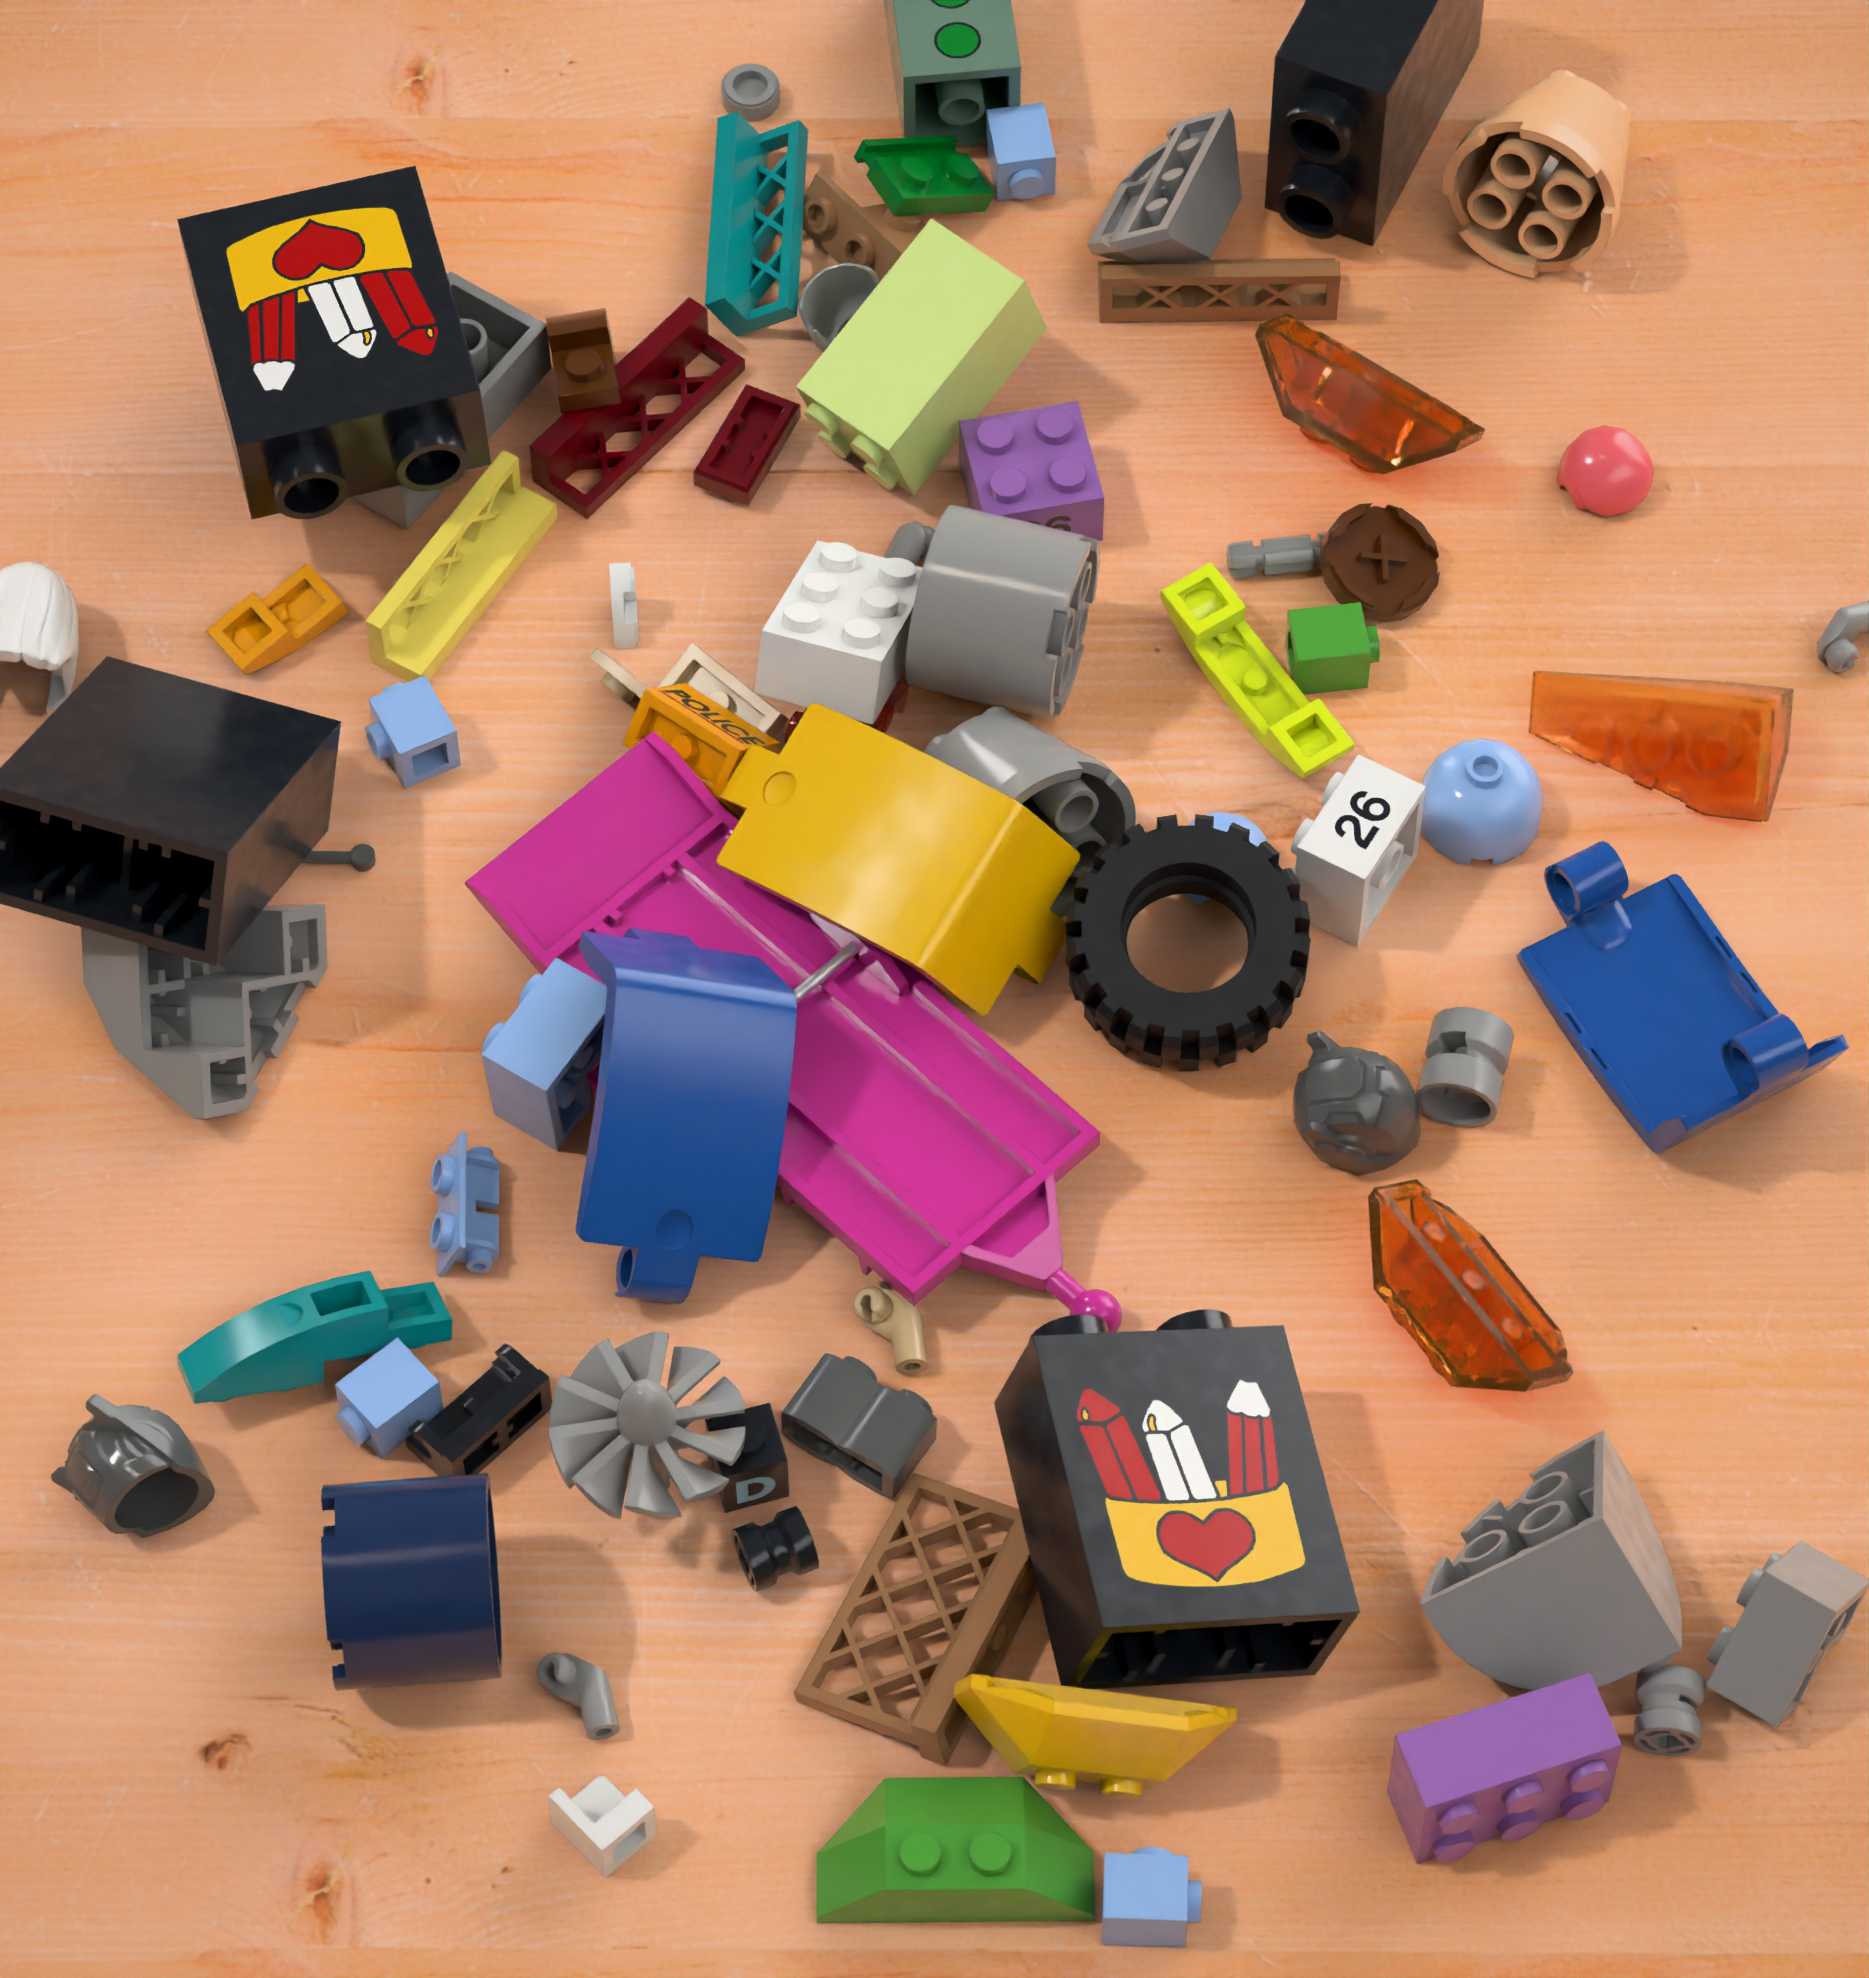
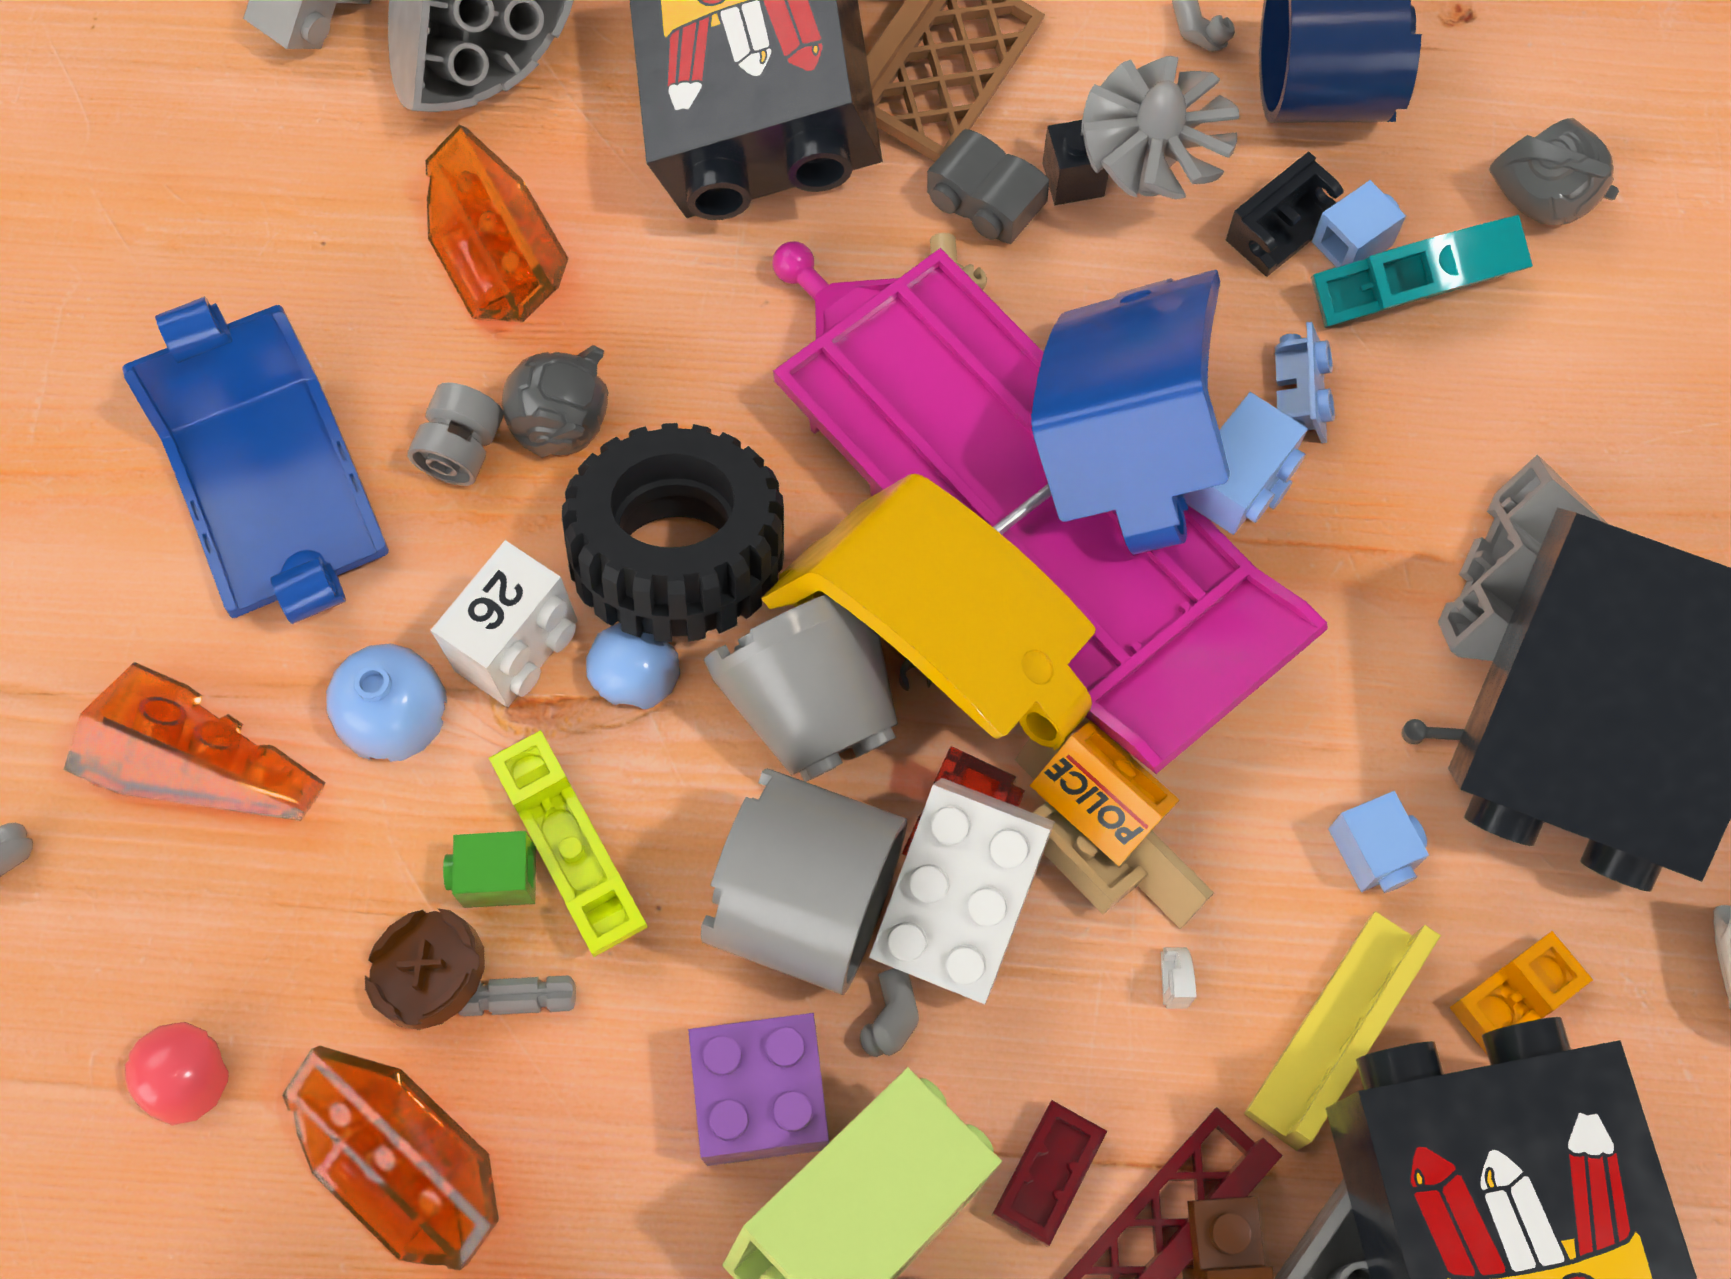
camera: 175 degrees left, 10 degrees up
(775, 1548) = (1055, 100): black wheel -> none

